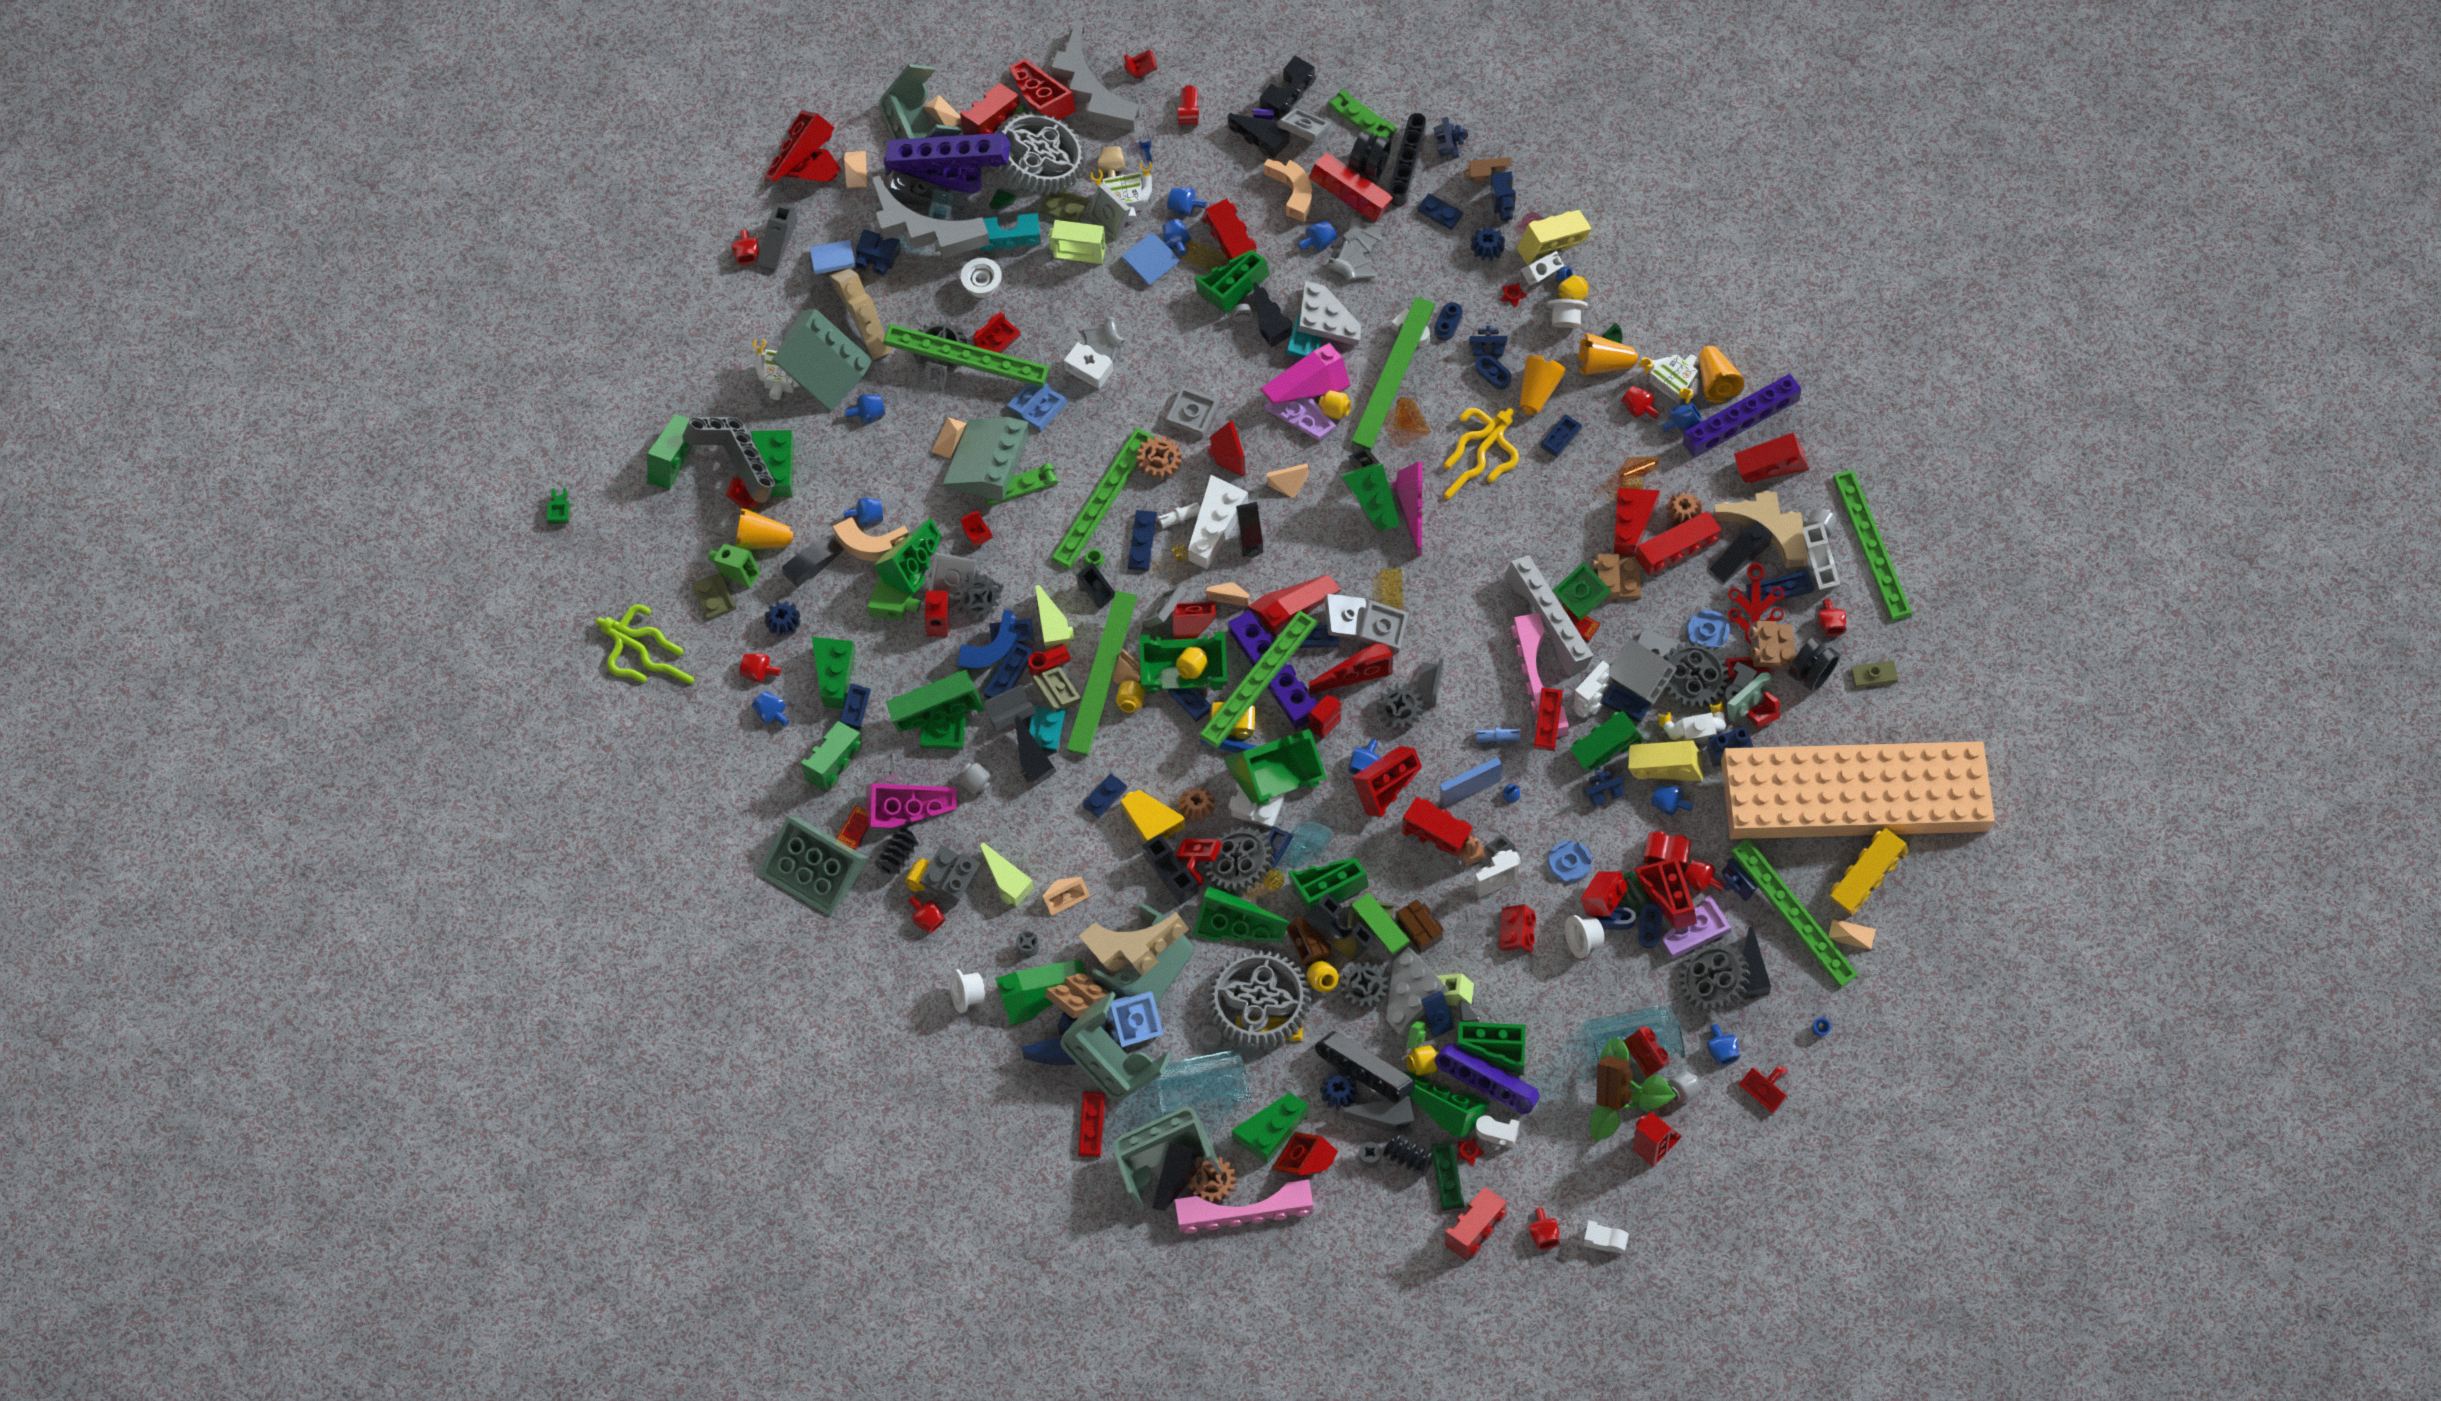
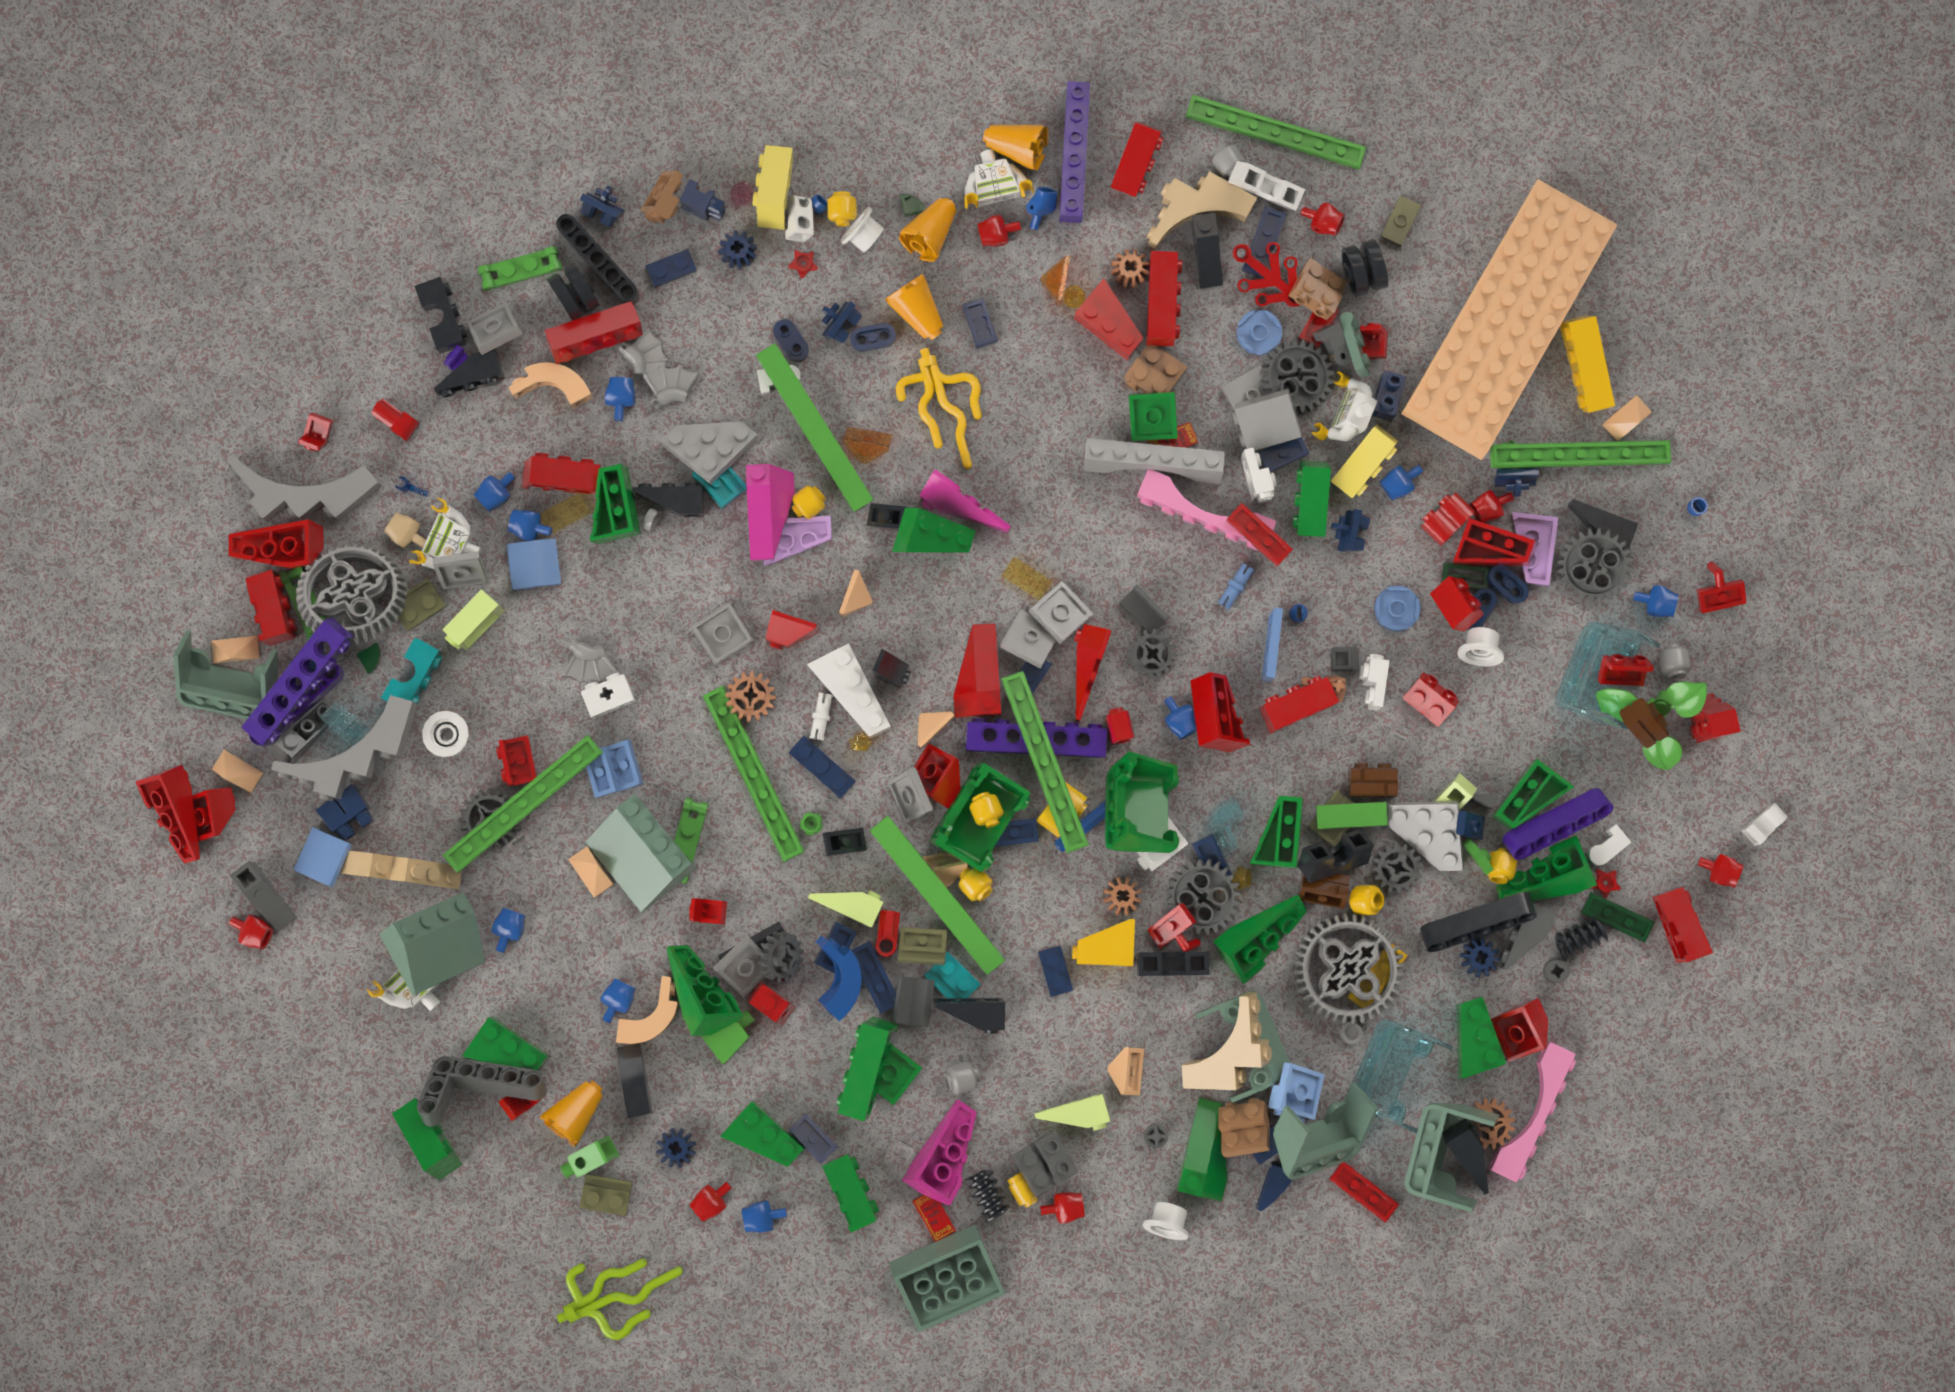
camera: 60 degrees left, 20 degrees up
(559, 509) = (414, 1283): green plate -> none

